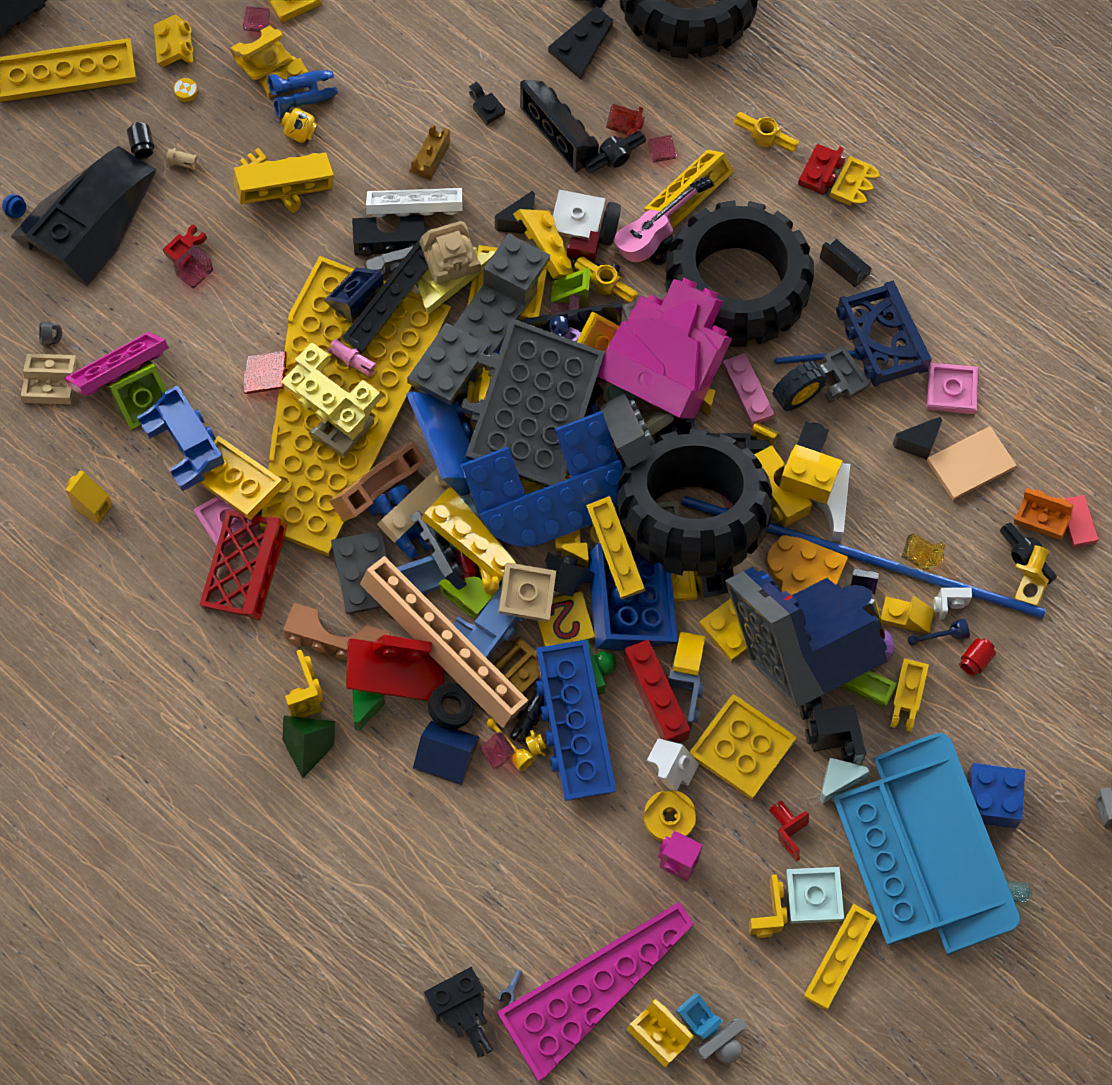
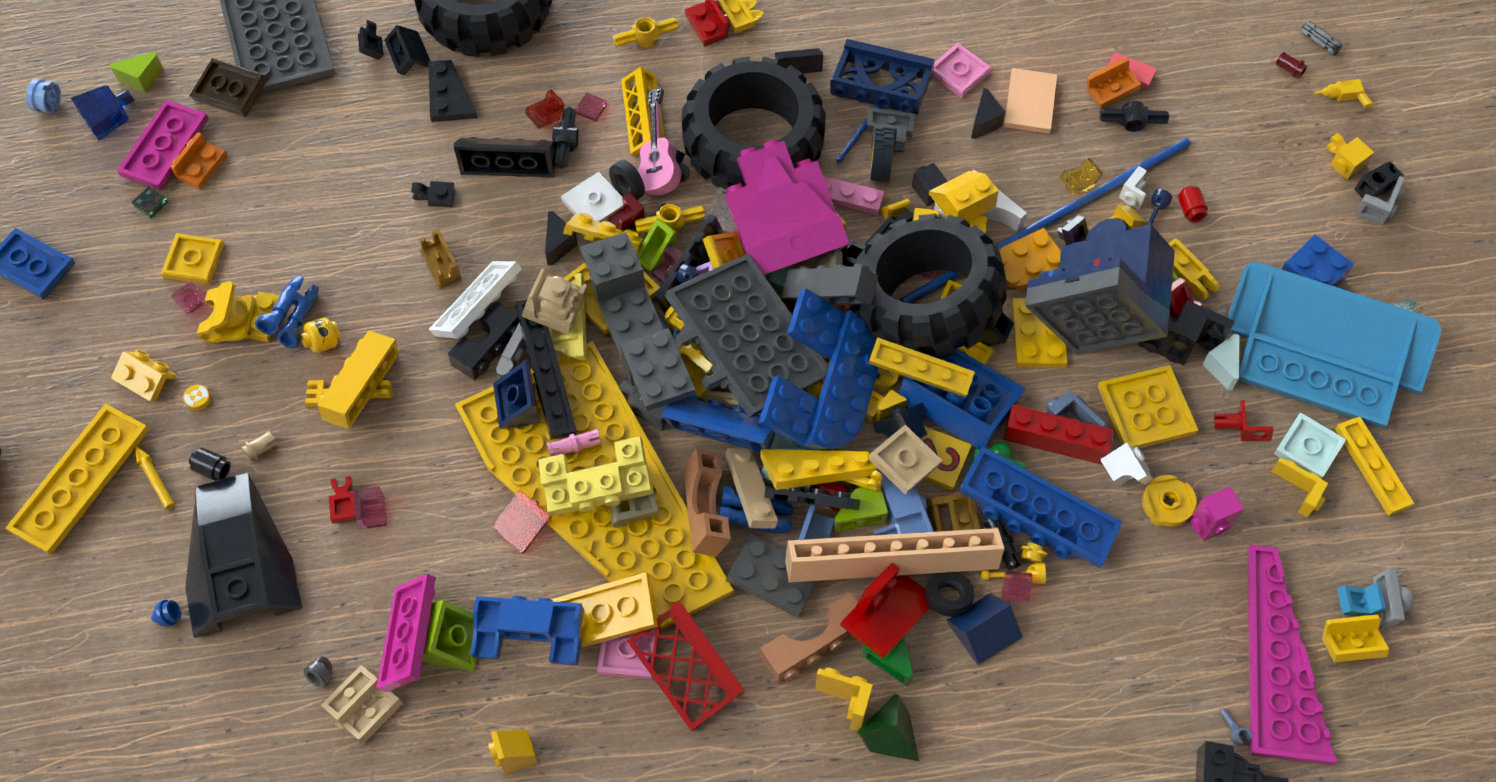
camera: 50 degrees left, 5 degrees down
(111, 98) = (144, 461): none -> yellow piece
(689, 653) = (1044, 387): yellow slope -> none
(868, 705) = (1179, 295): none -> red bracket
(1033, 575) = (1157, 122): yellow bracket -> none

